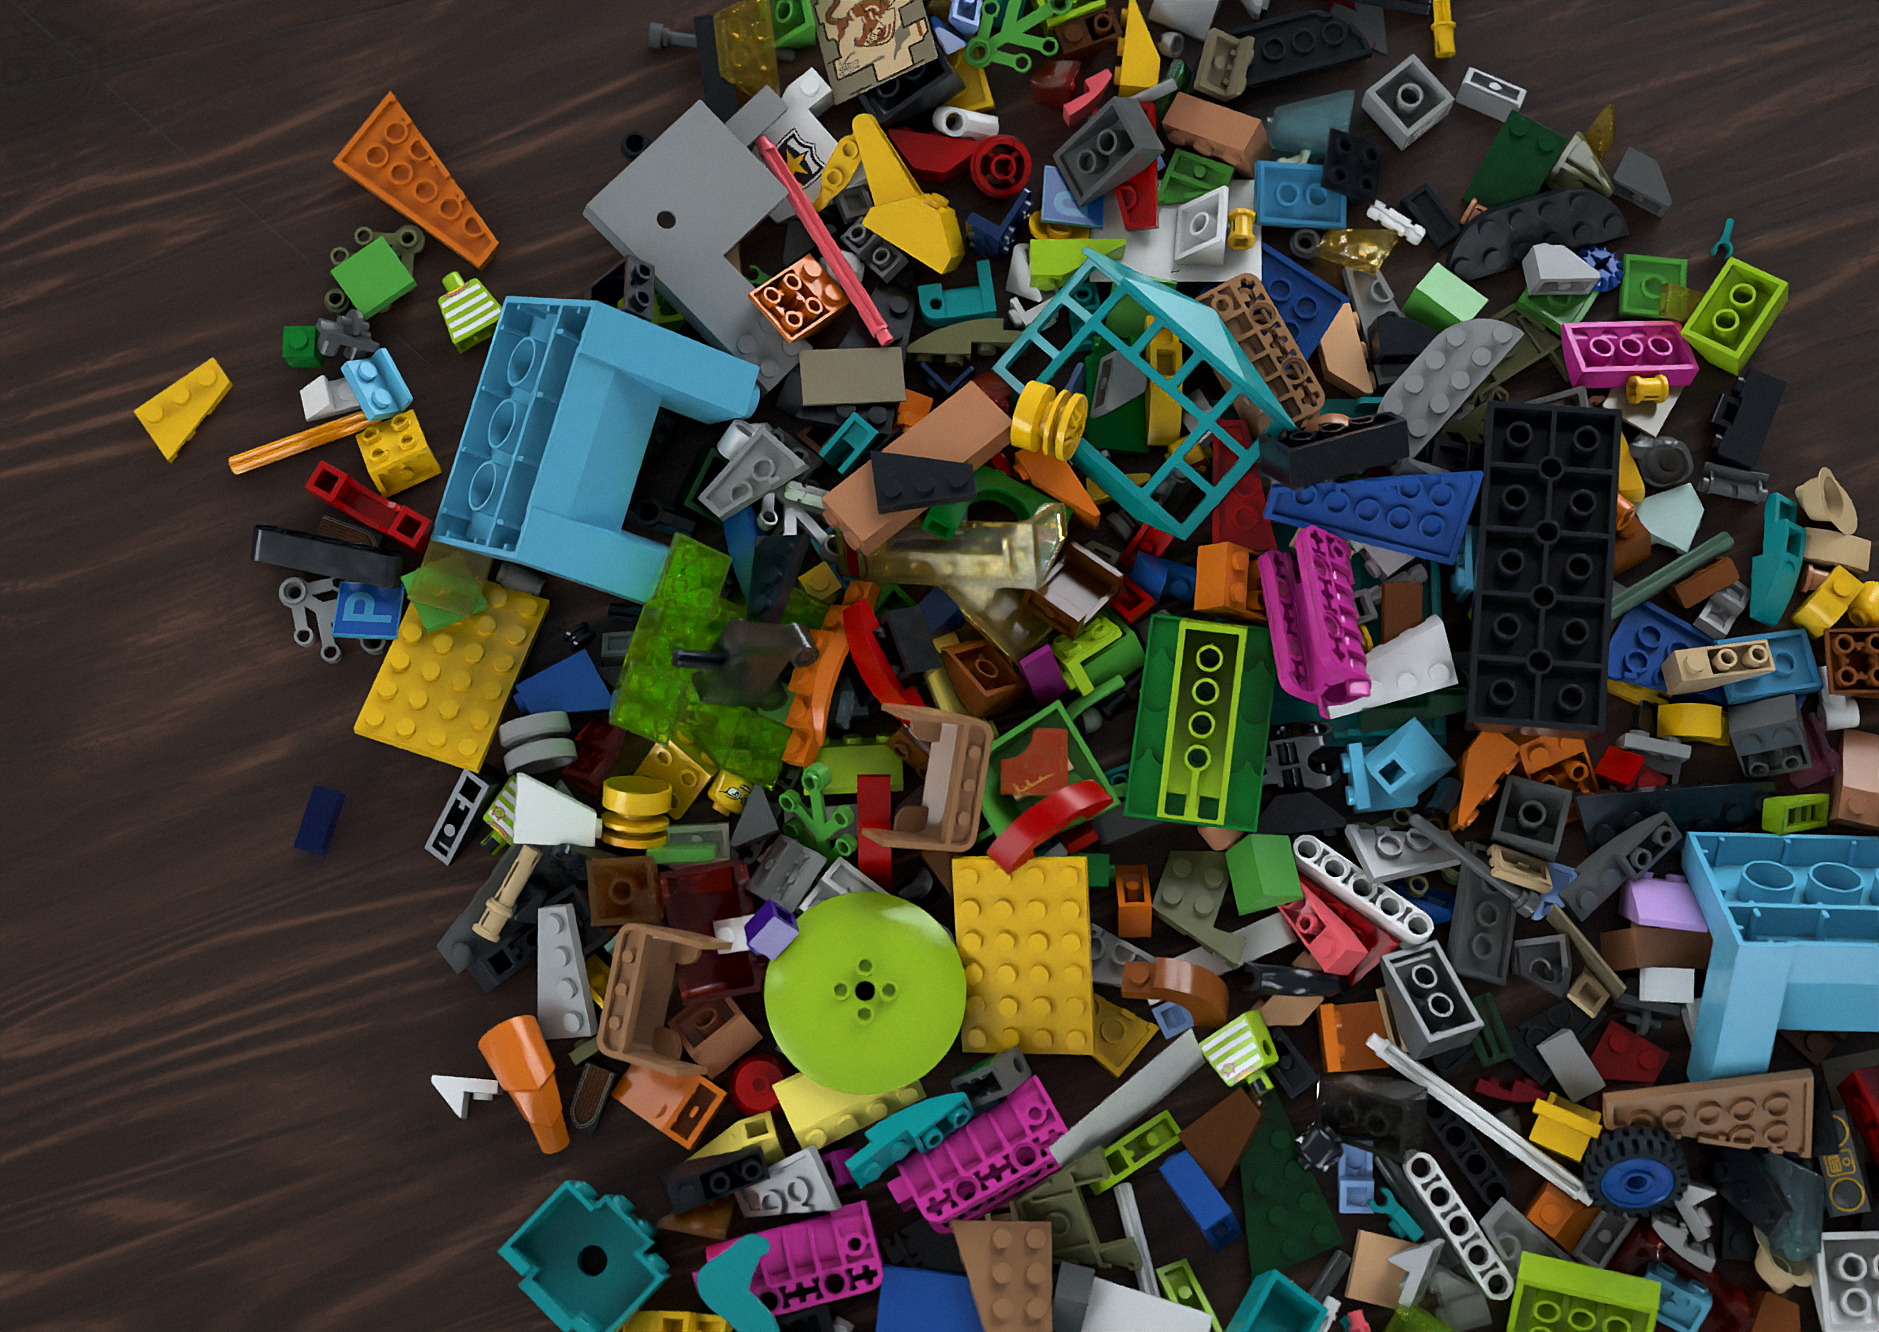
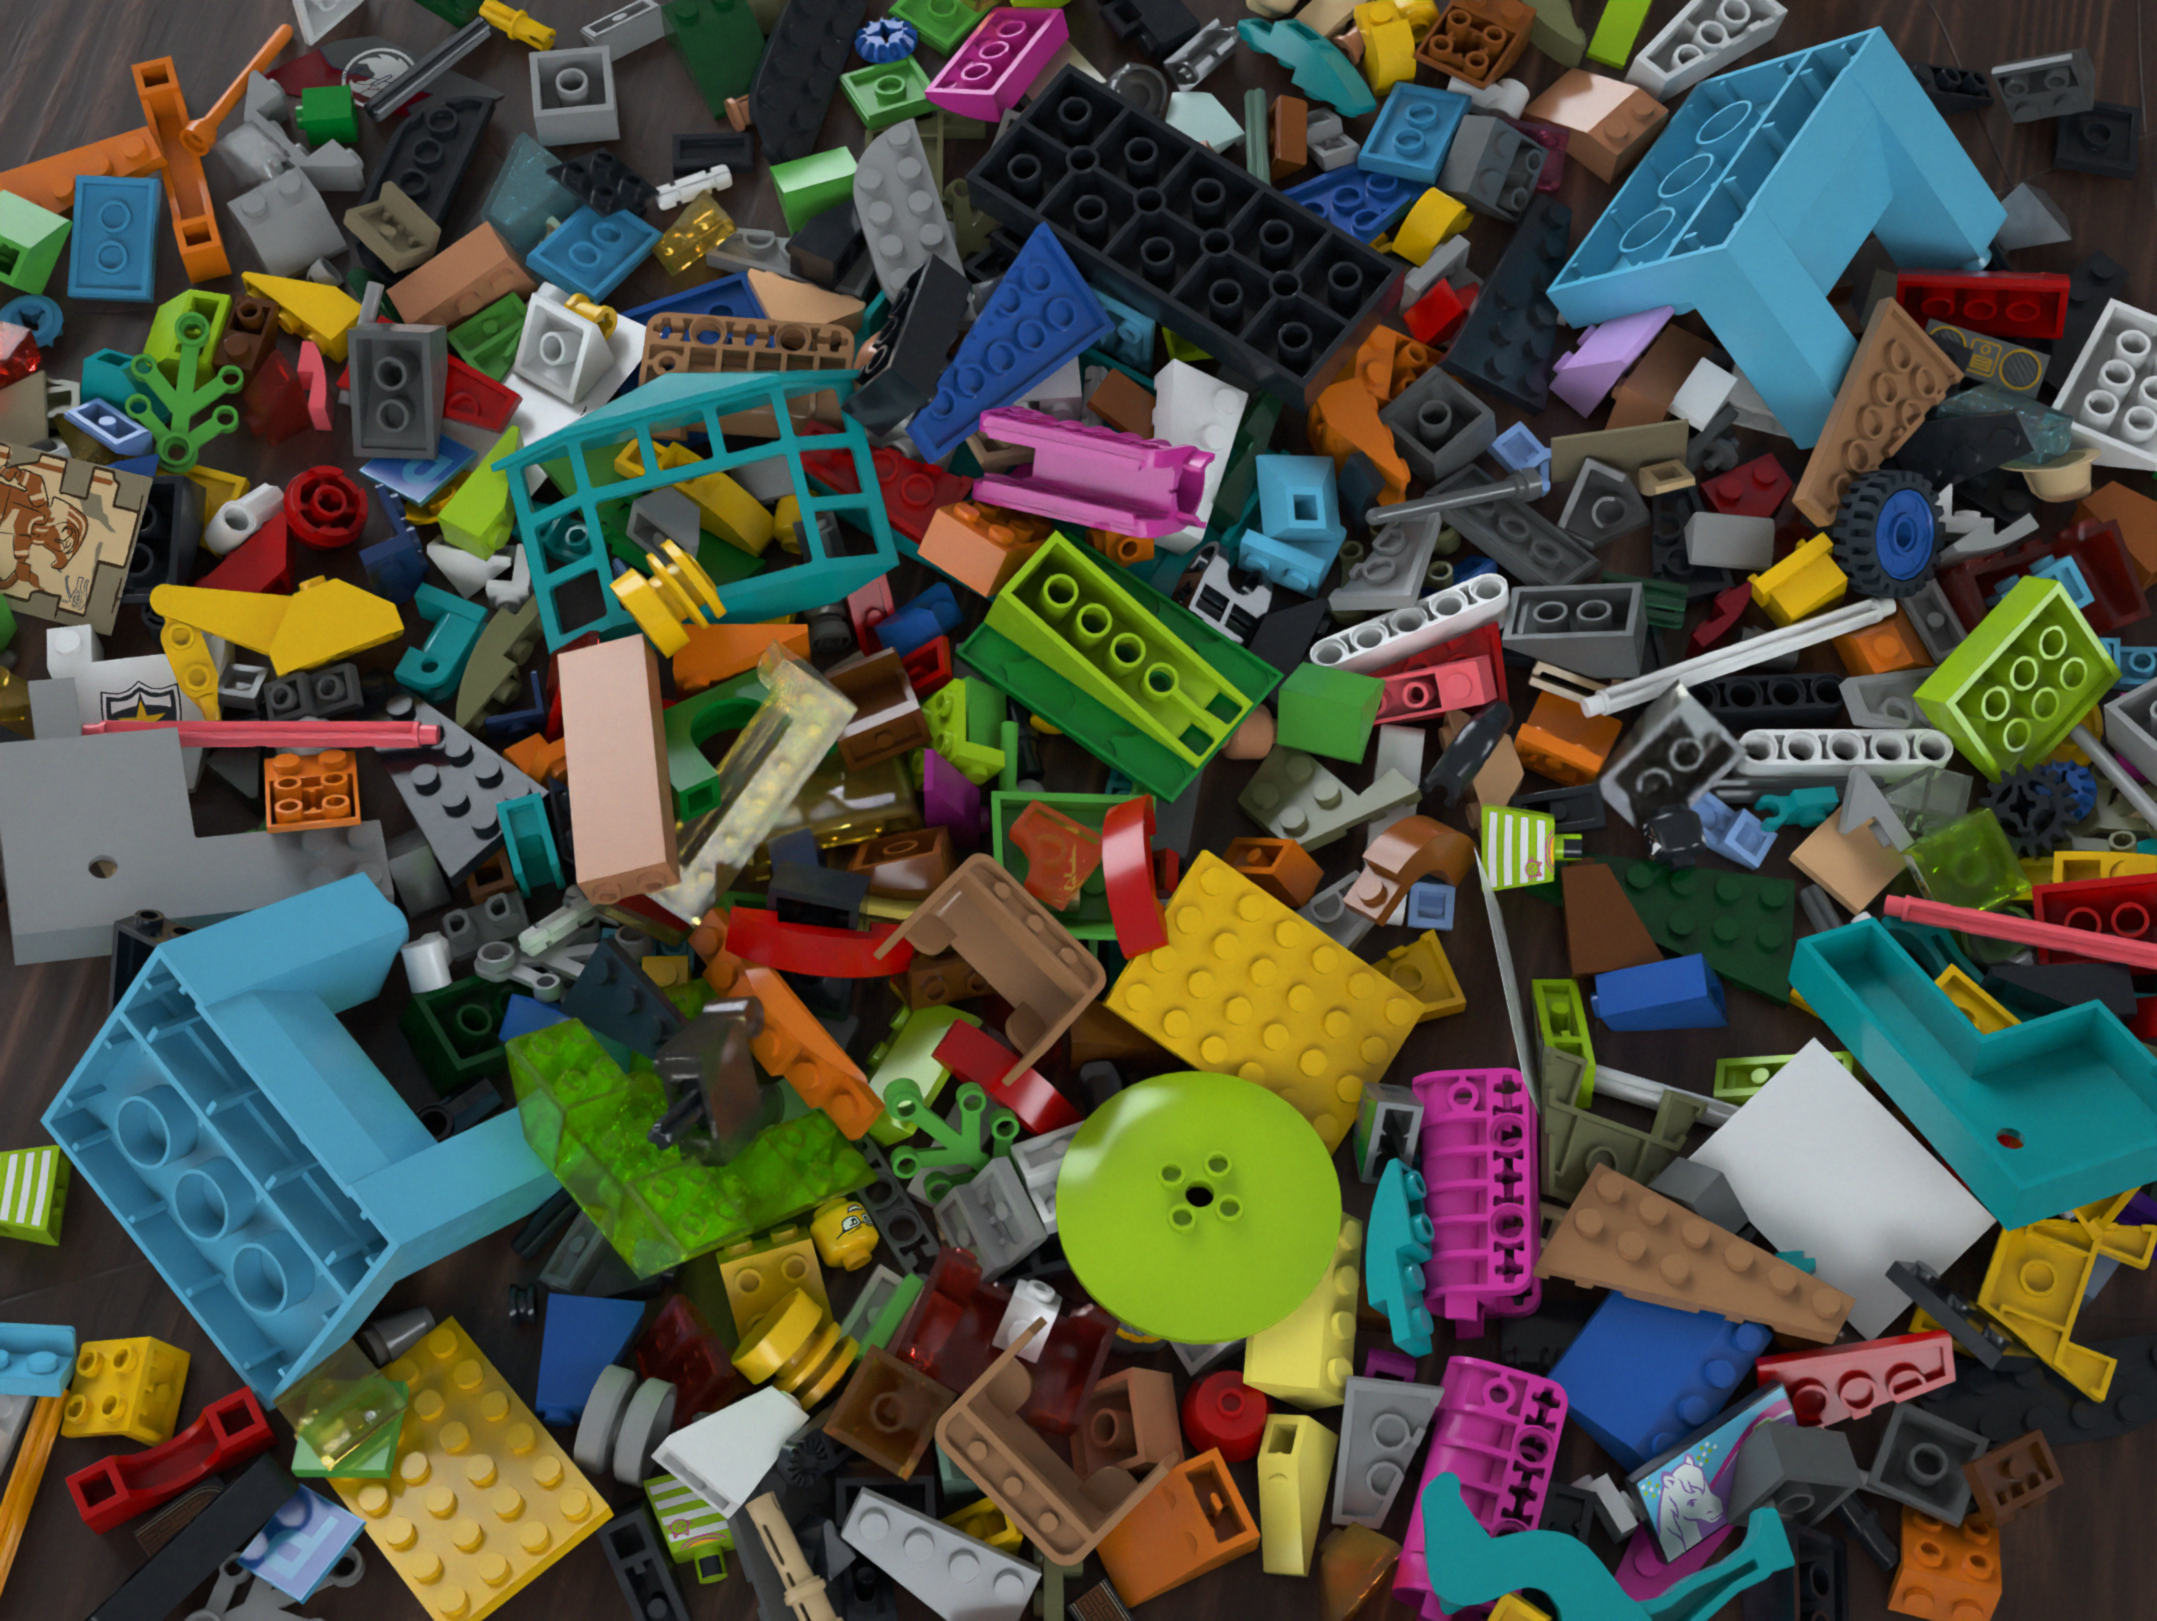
camera: 65 degrees left, 15 degrees down
(711, 1178) = (1313, 1528): black slope -> none
(751, 474) = (482, 965): light grey wing -> none
(755, 822) = (901, 1218): dark grey slope -> none
(770, 930) = (1054, 1264): brick -> none
(845, 709) = (841, 1031): clear light blue tile -> none
(852, 376) = (448, 792): dark tan window -> none
(919, 482) = (639, 764): black wing -> none
(1304, 235) = (645, 272): dark grey plate -> none
(1519, 869) = (1485, 466): tan tile -> none
(1557, 271) = (864, 66): light grey slope -> none
(1621, 858) = (1536, 364): dark grey slope -> none
(1647, 389) = (1049, 57): yellow bush -> none
(1715, 666) = (1387, 165): tan slope -> none
(1793, 813) = (1585, 197): lime slope -> none

